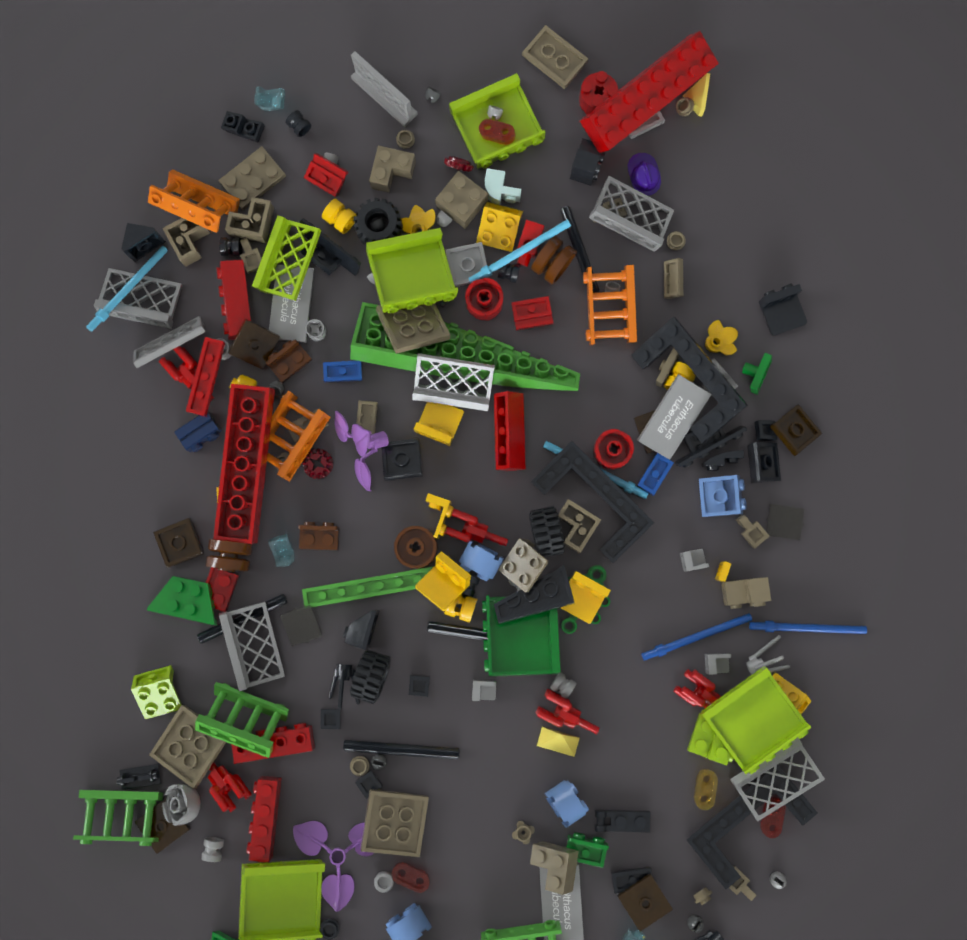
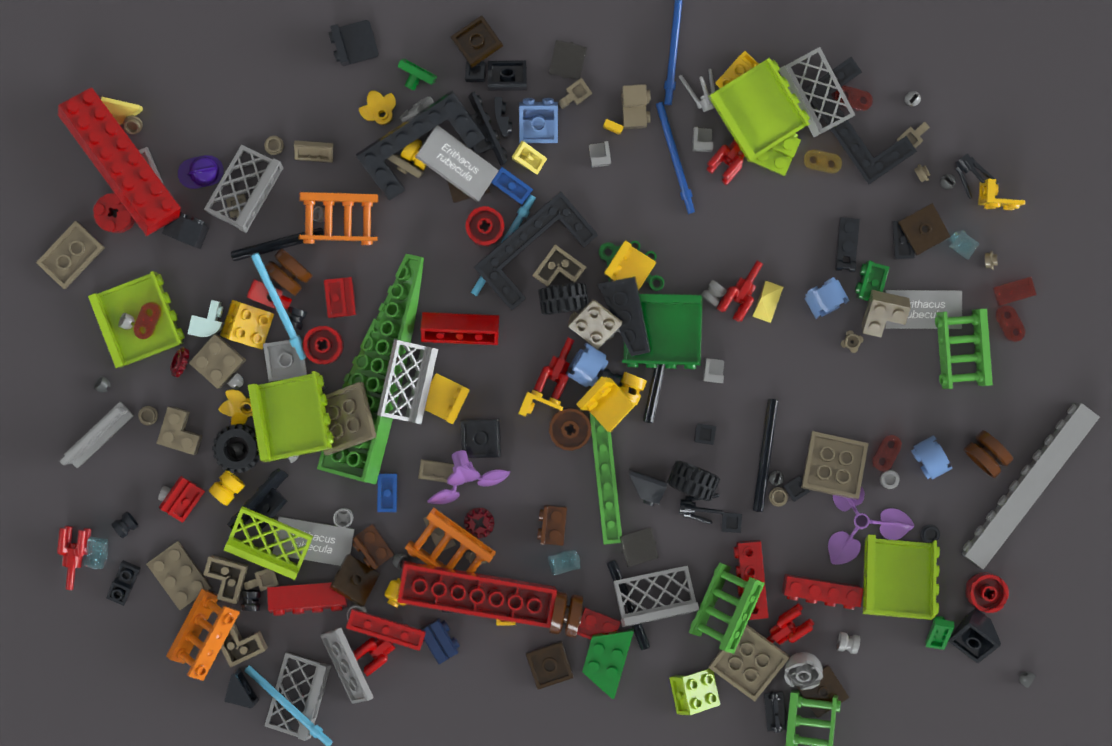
camera: 90 degrees left, 5 degrees up
(270, 75) = (72, 552): none -> red plant
(685, 488) = (529, 157): none -> light yellow slope

